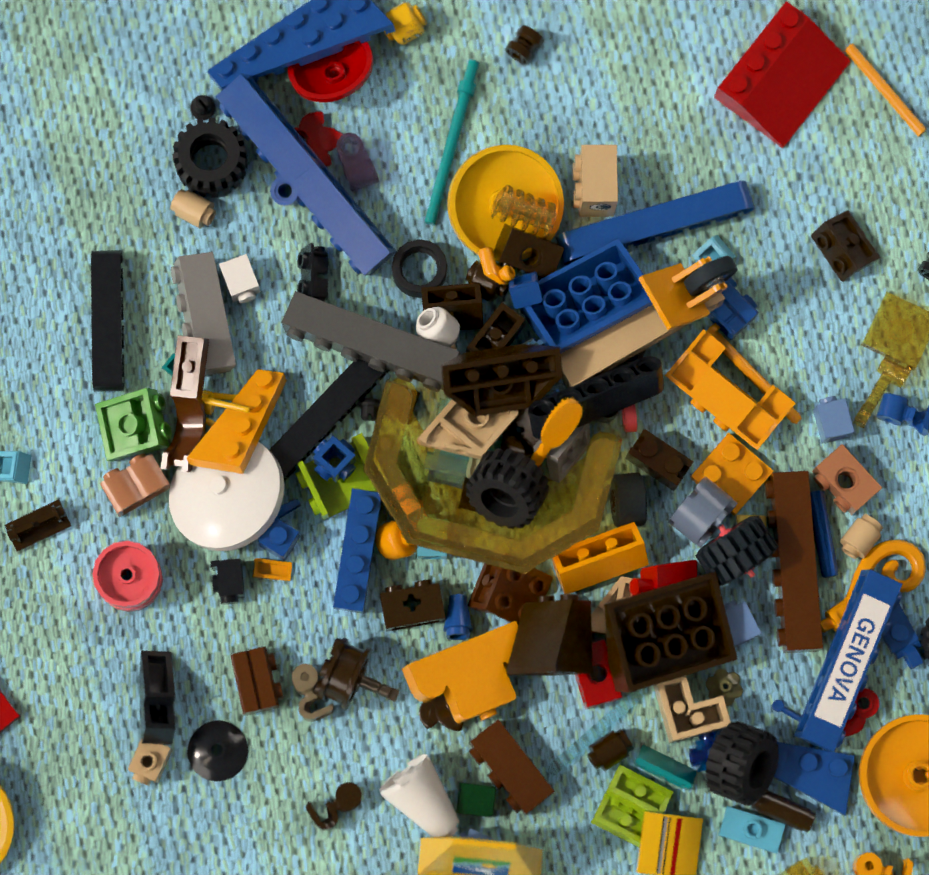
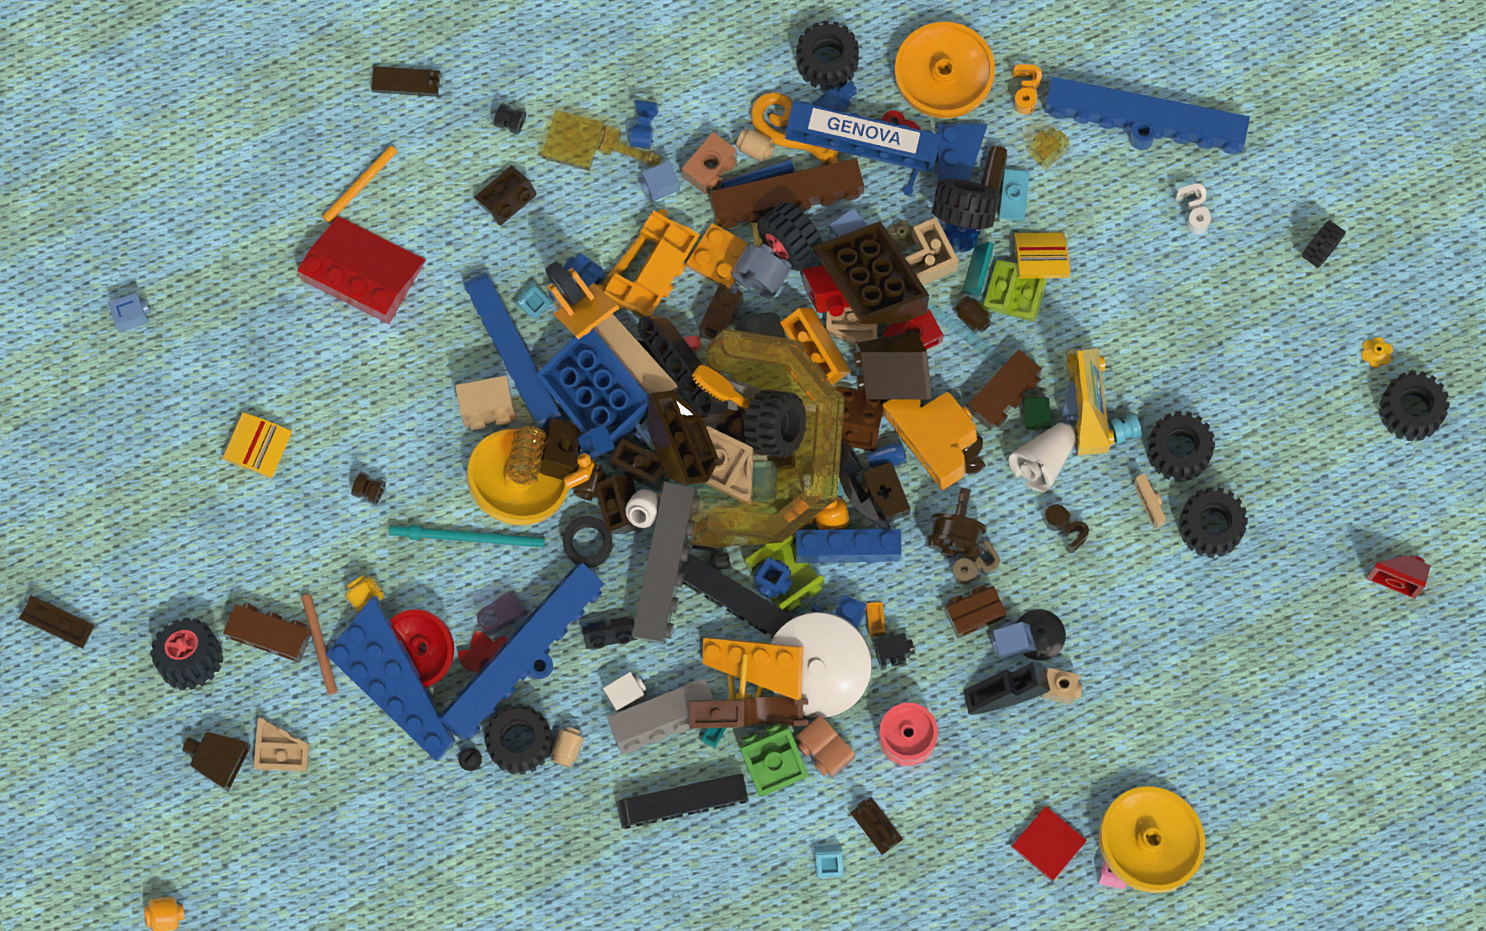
camera: 90 degrees left, 5 degrees down
(213, 717) = (1013, 639): none -> medium blue brick
(454, 569) = (849, 466): none -> black slope

